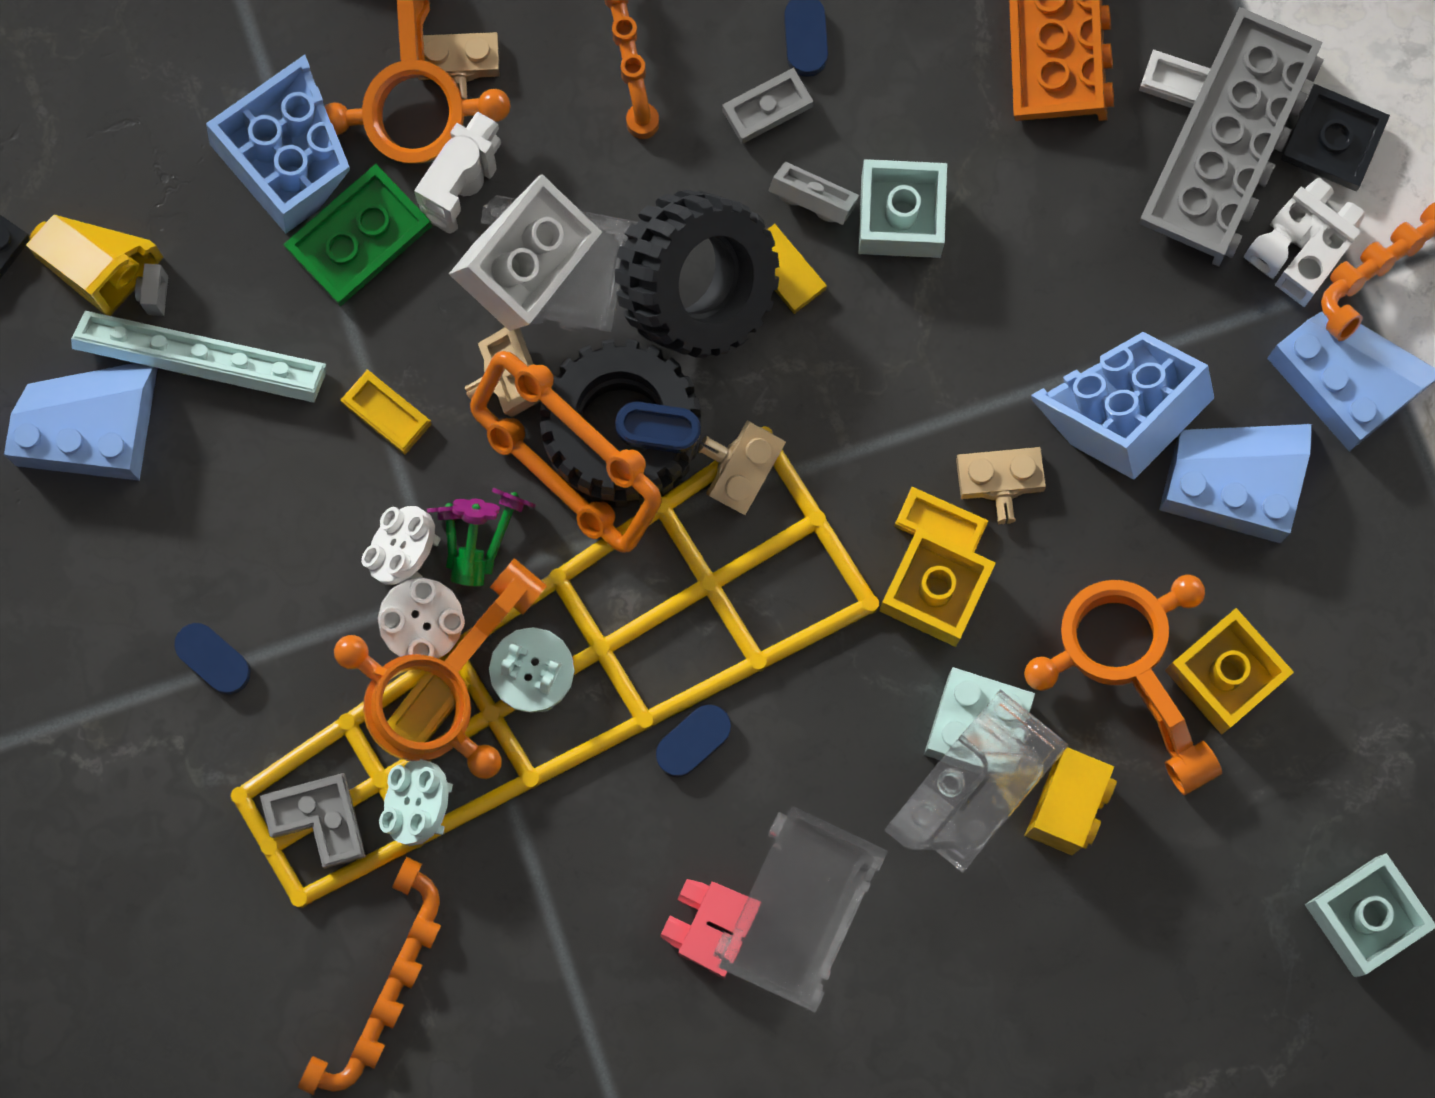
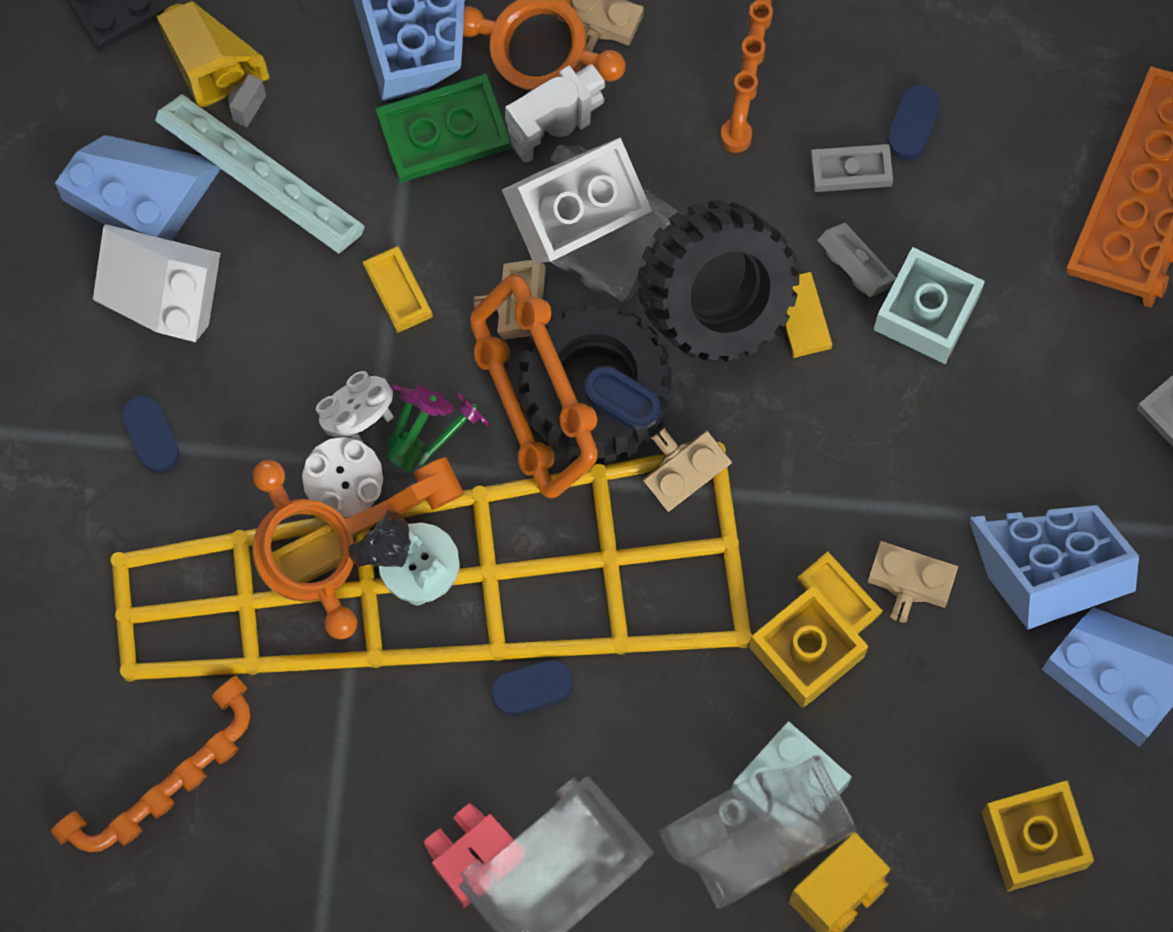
camera: 25 degrees right, 5 degrees down
(149, 508) = (156, 282): none -> white slope
(320, 806) = (184, 600): light grey tile -> none
(415, 802) = (264, 630): light aqua plate -> none
(496, 669) = (384, 545): none -> black piece
(1190, 764) = (965, 904): orange piece -> none

